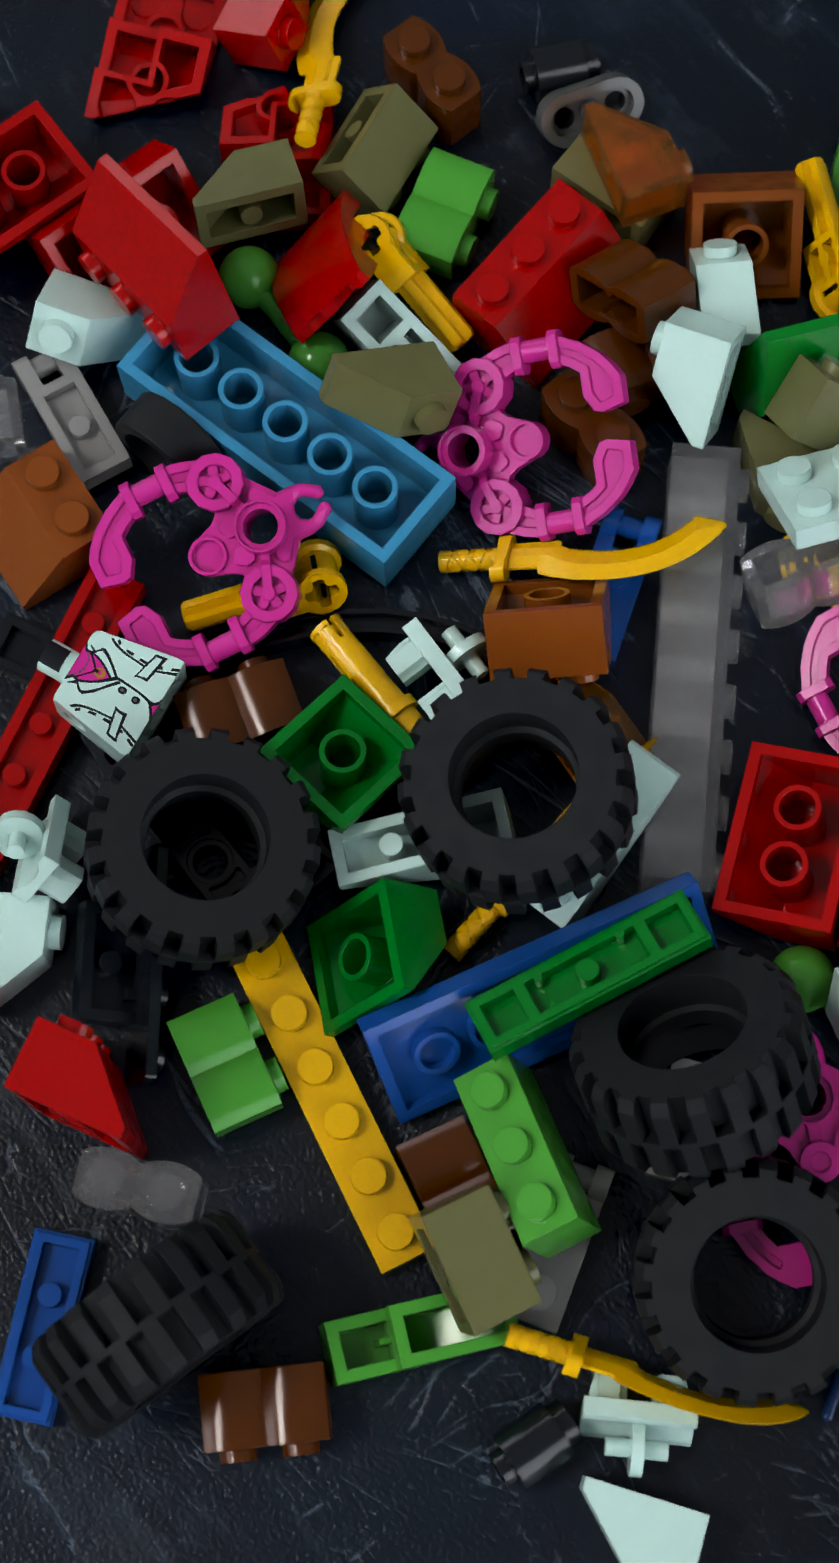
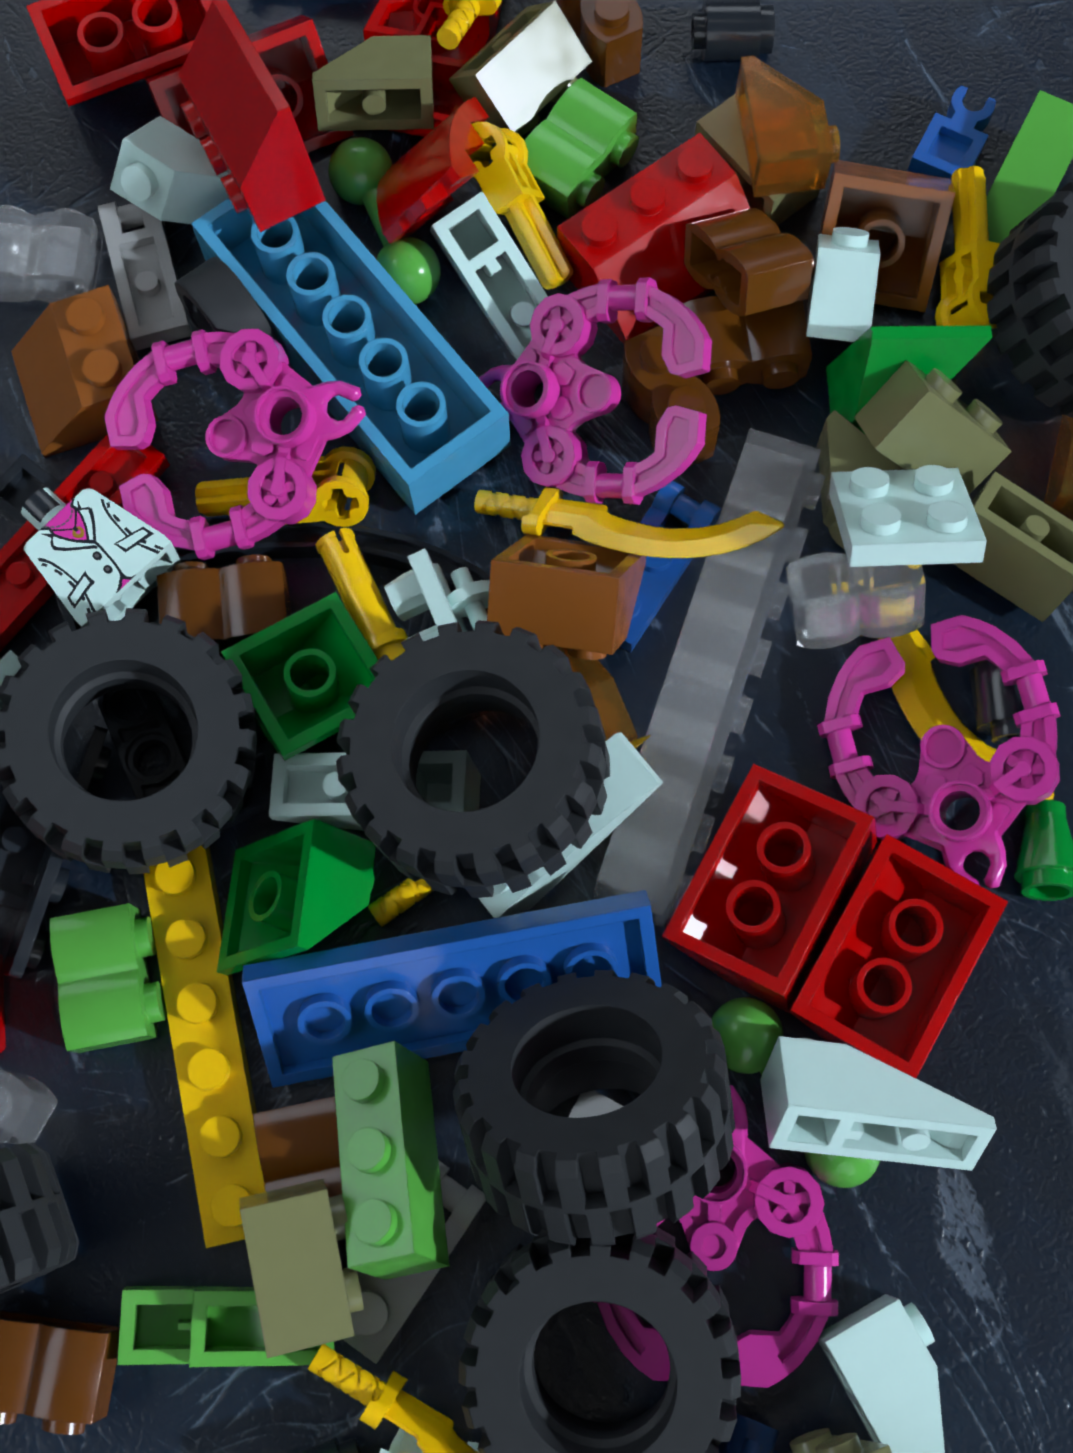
camera: 15 degrees right, 0 degrees up
(393, 388) = (465, 304): olive slope -> none
(581, 94) = (730, 57): dark grey plate -> none
(588, 974) = (502, 979): green plate -> none
(696, 369) = (791, 354): light aqua slope -> none
(786, 134) = (952, 139): none -> blue plate

